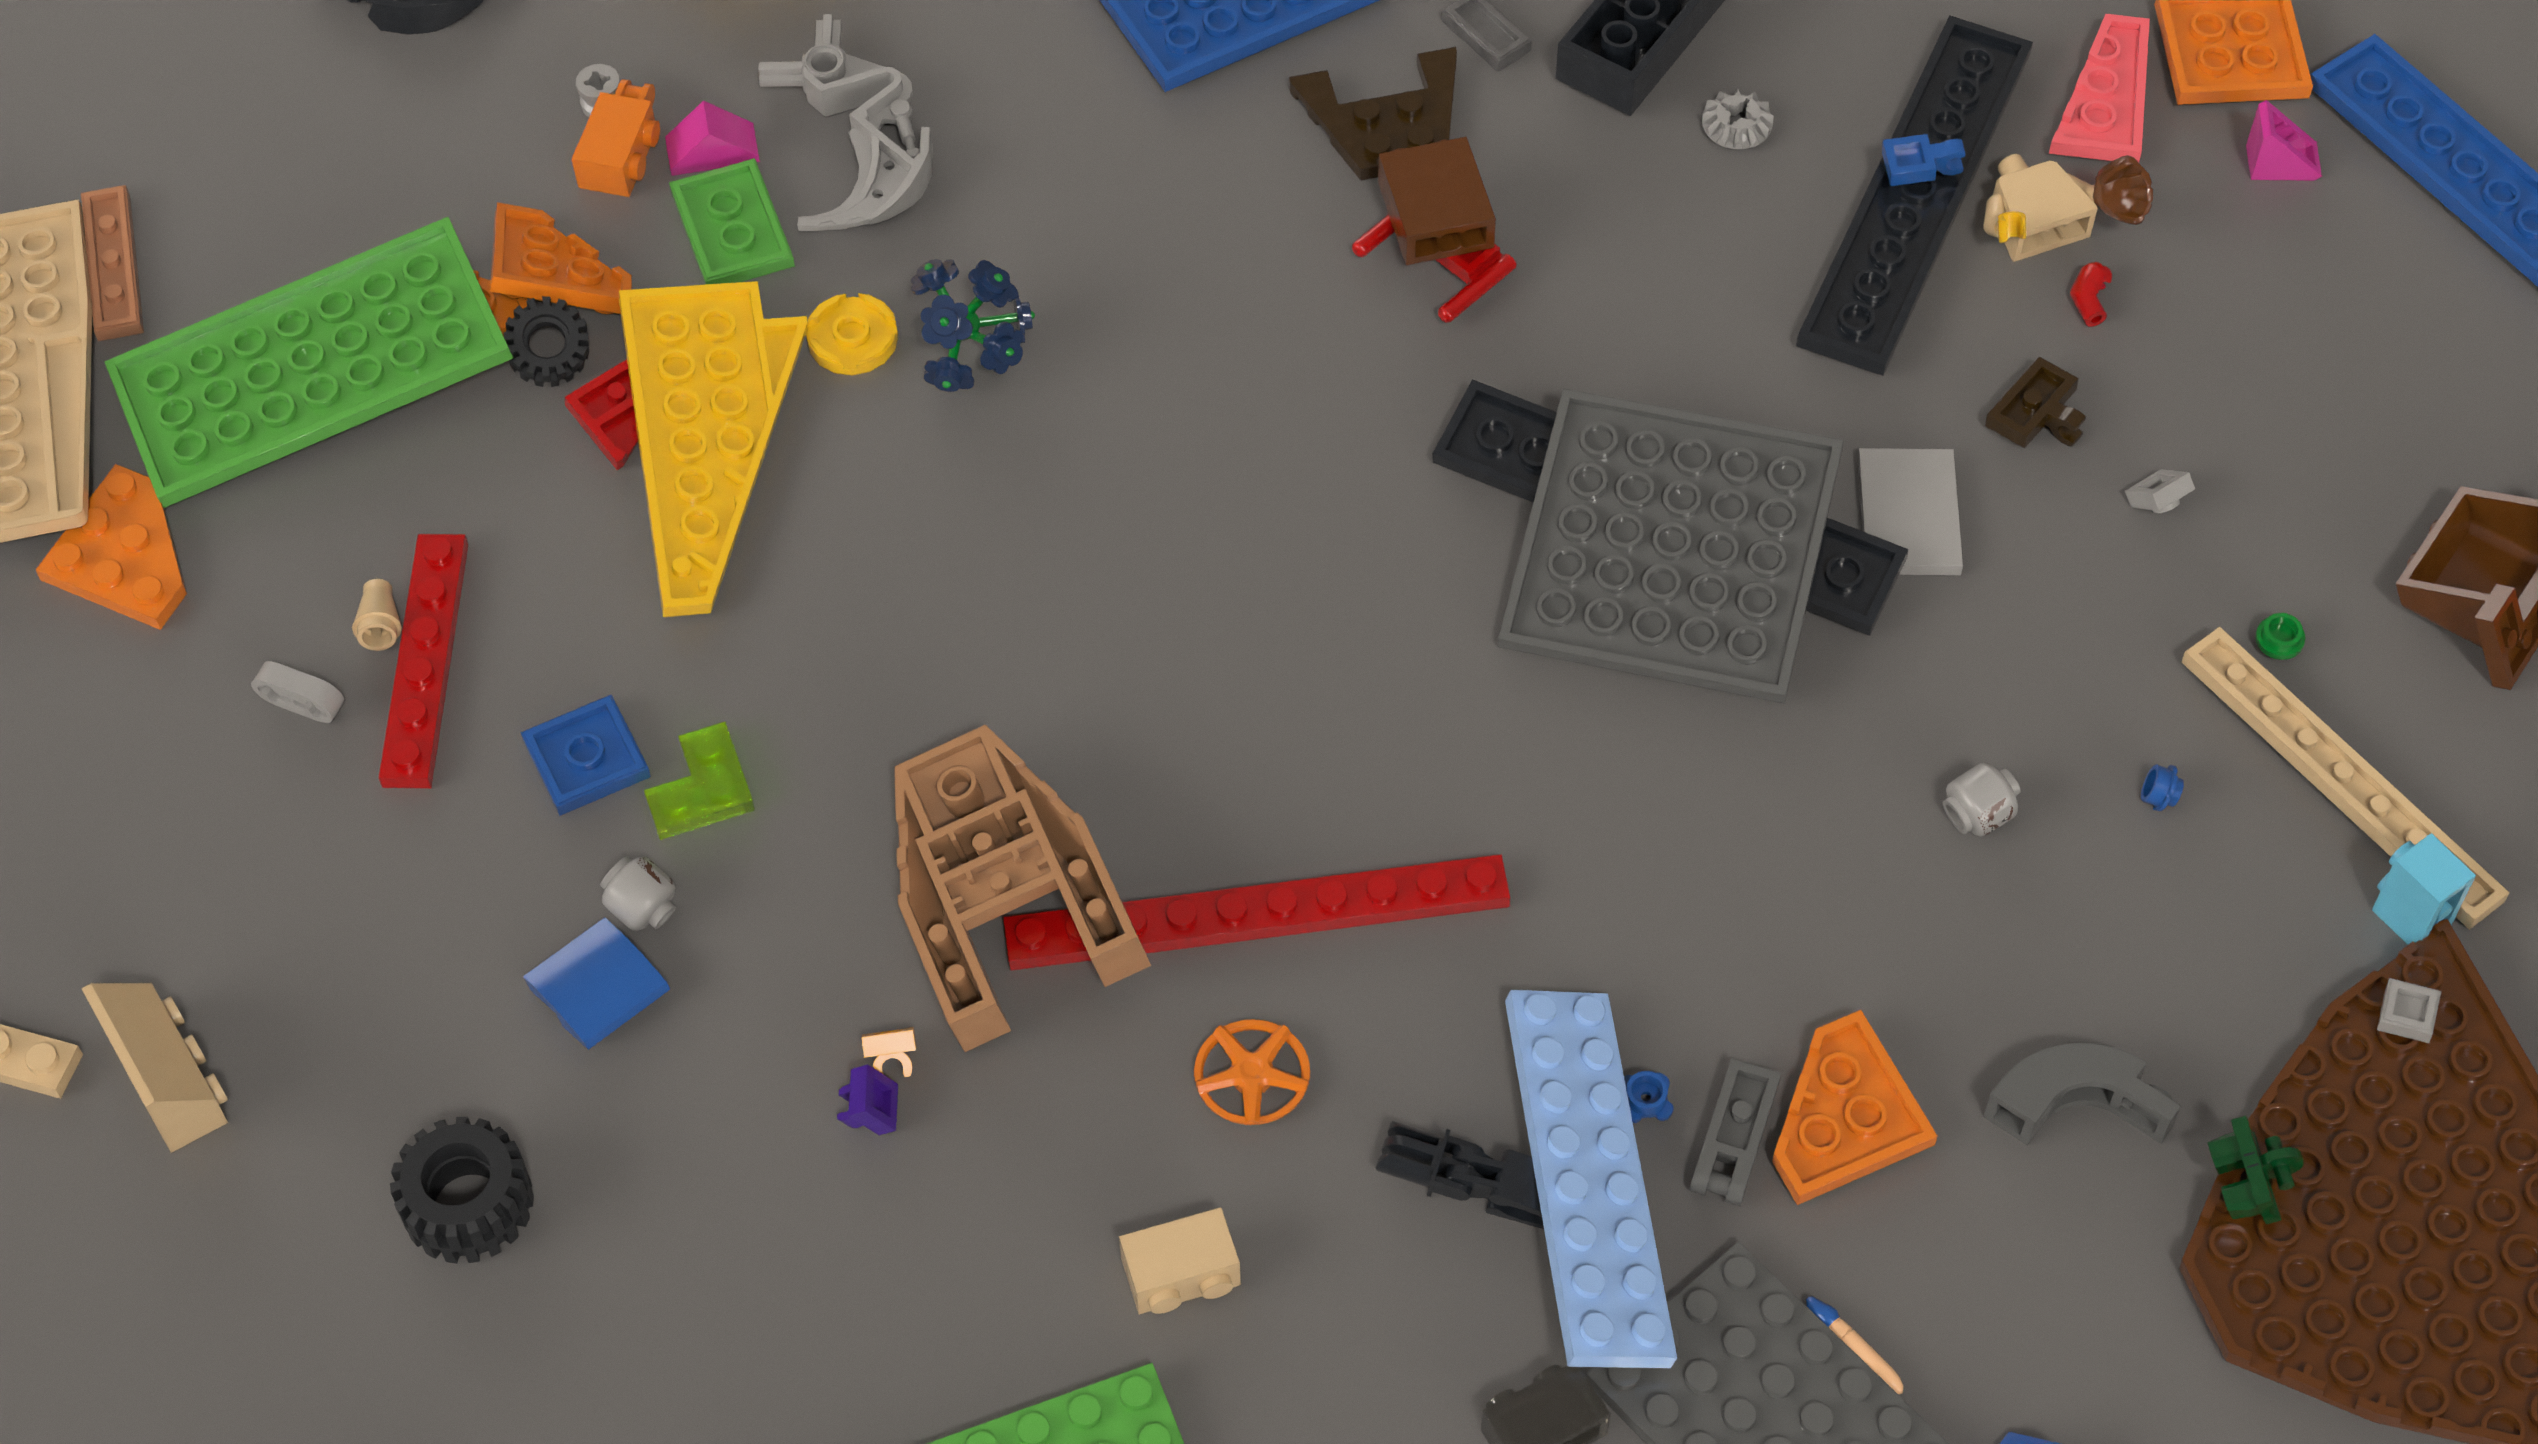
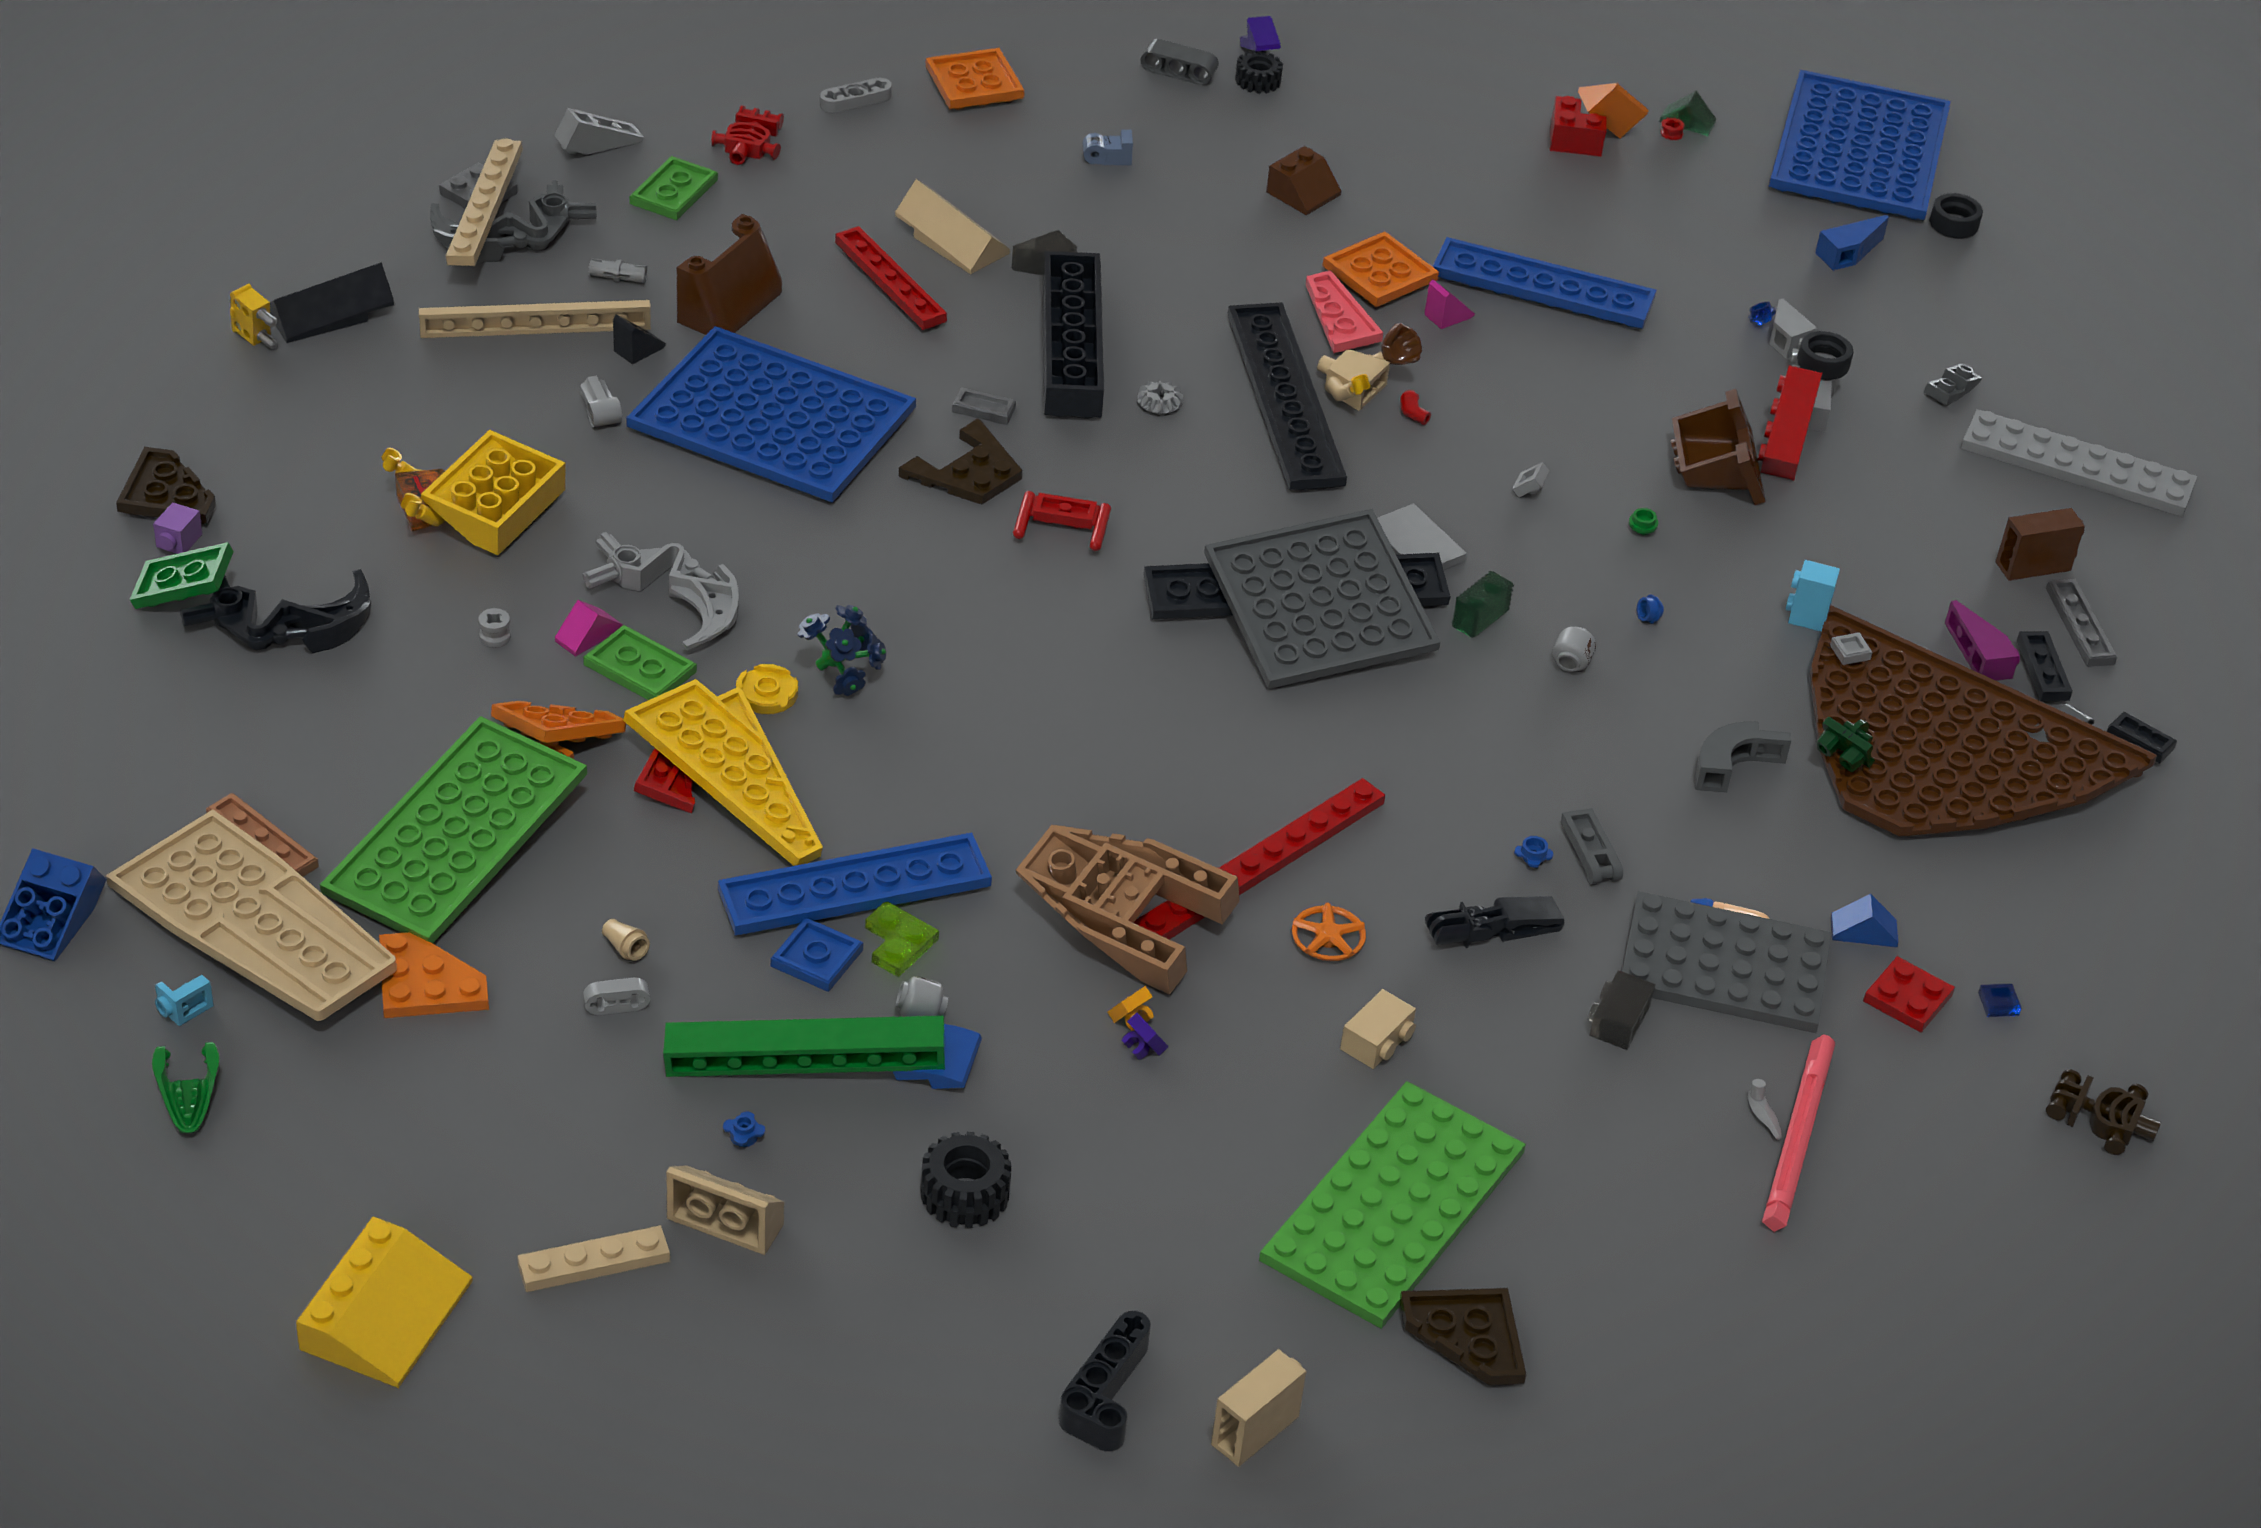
camera: 40 degrees left, 15 degrees down
(290, 973) = (744, 1129): none -> blue plate
(423, 661) = (674, 951): red plate -> none
(440, 887) = (804, 1046): none -> green brick
(552, 315) = (607, 750): black tyre -> none
(617, 140) = (533, 647): orange brick -> none
(711, 676) = (853, 883): none -> blue plate
(1436, 200) = (1048, 488): reddish brown brick -> none
(1589, 1181) = (1547, 893): light blue plate -> none
(1847, 1113) = (1635, 812): orange plate -> none
(1907, 661) = (1482, 604): none -> clear green brick
(1916, 160) = (1280, 375): blue plate -> none
(2036, 402) = (1435, 467): dark brown plate -> none
(2328, 760) = (1708, 563): tan plate -> none

